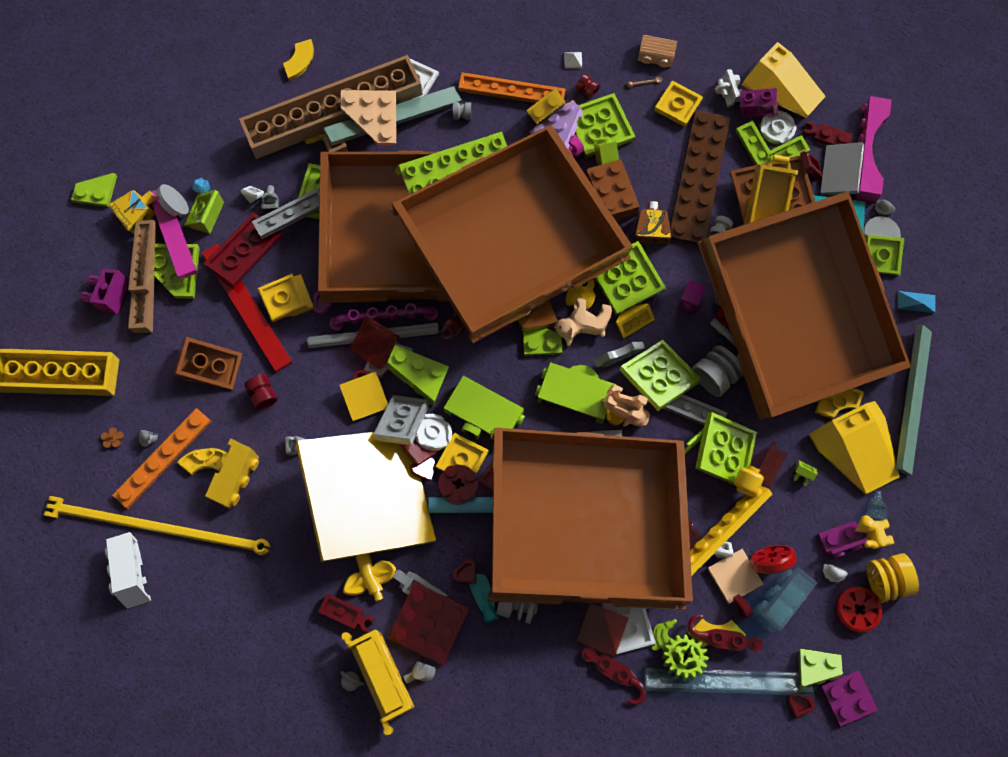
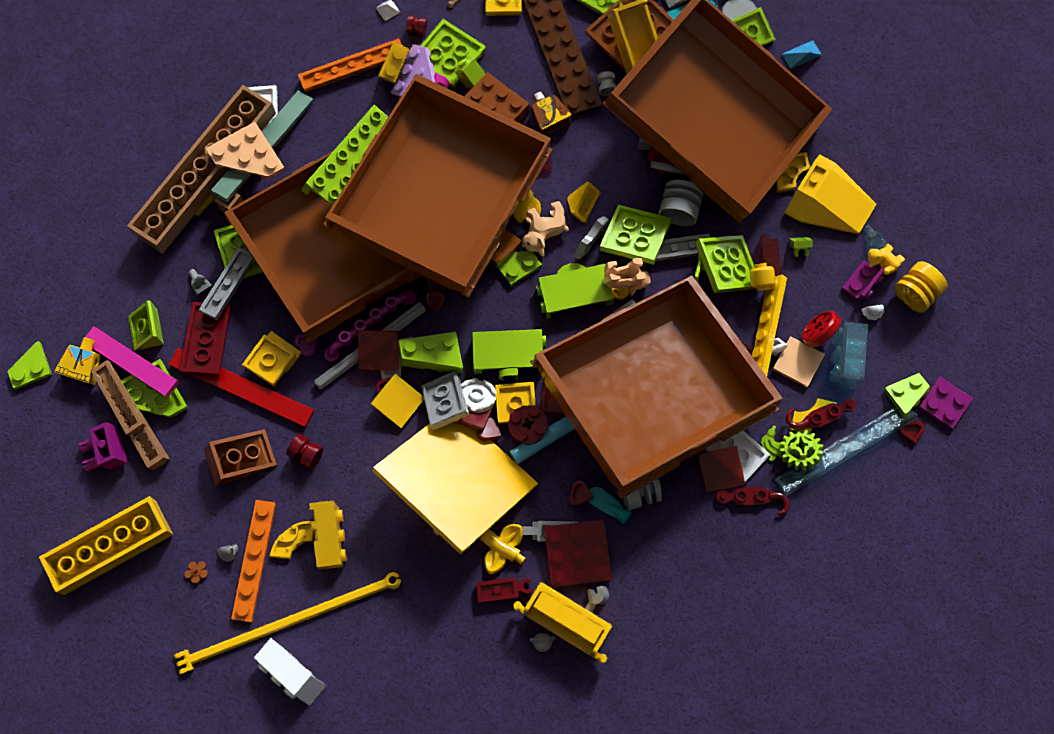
camera: 30 degrees left, 0 degrees up
(172, 201) = (111, 334): light grey tile -> none
(200, 185) = (127, 306): dark azure piece -> none
(252, 193) = (179, 286): white slope -> none
(290, 443) = (365, 478): light grey piece -> none
(300, 60) = (143, 144): yellow tile -> none
(462, 111) = (320, 108): light grey wheel -> none
(630, 281) = (562, 172): lime plate -> none
(692, 296) = (619, 154): magenta brick -> none
(742, 607) = (820, 382): dark red tile -> none
(858, 597) = (920, 324): red wheel -> none
(913, 400) = (849, 135): sand green tile -> none

